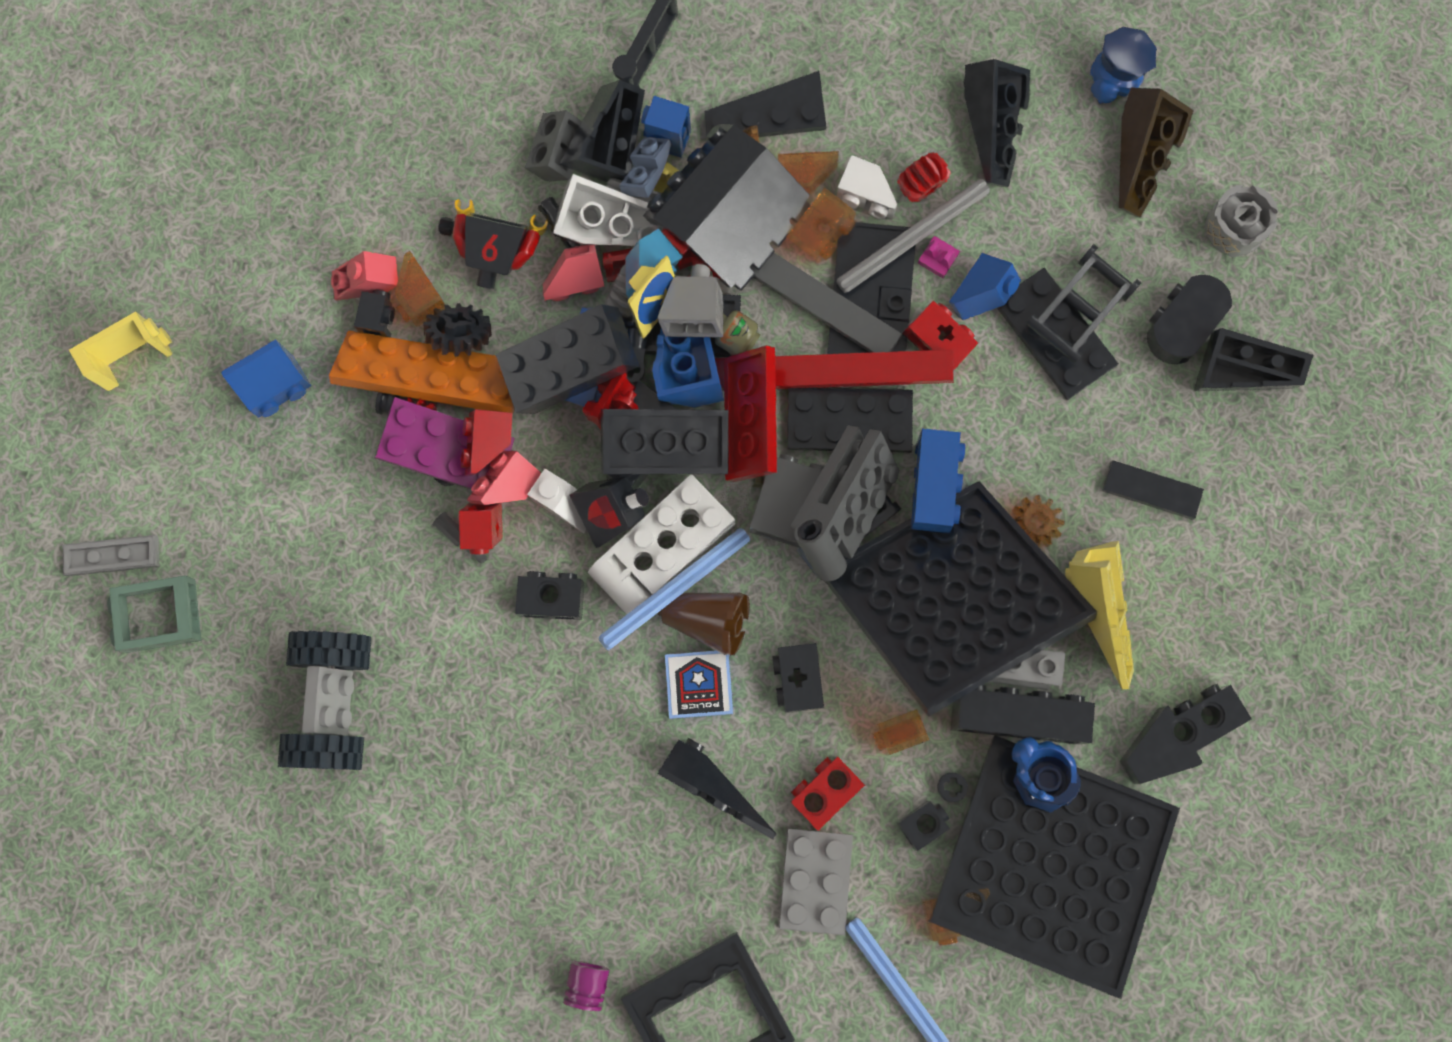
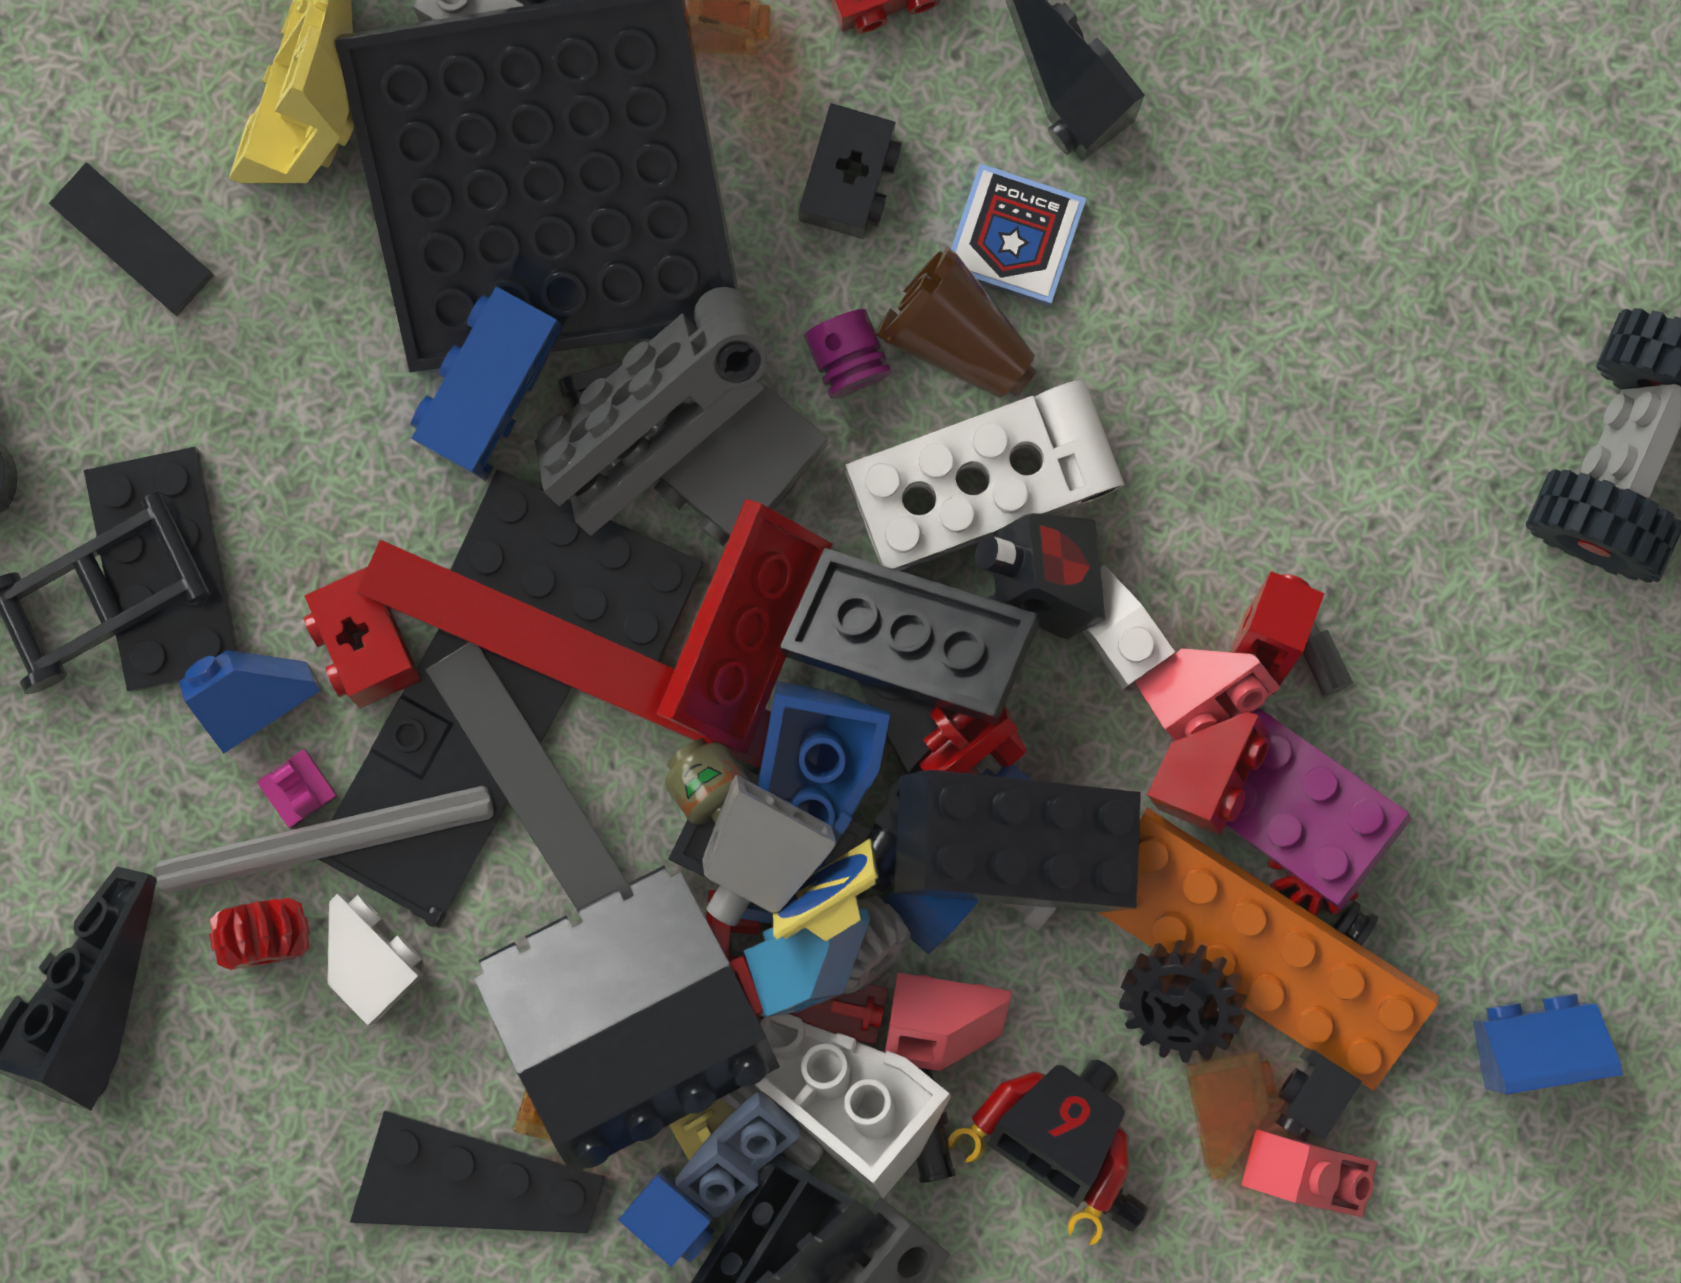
camera: 165 degrees left, 5 degrees up
(531, 590) = (1236, 474): black brick -> none
(673, 589) = (993, 391): light blue axle -> none
(759, 582) = (847, 353): none -> magenta piece
(810, 168) = (457, 1037): clear orange slope -> none
(825, 210) = (509, 918): clear orange brick -> none
(1045, 514) = (328, 275): clear orange gear -> none

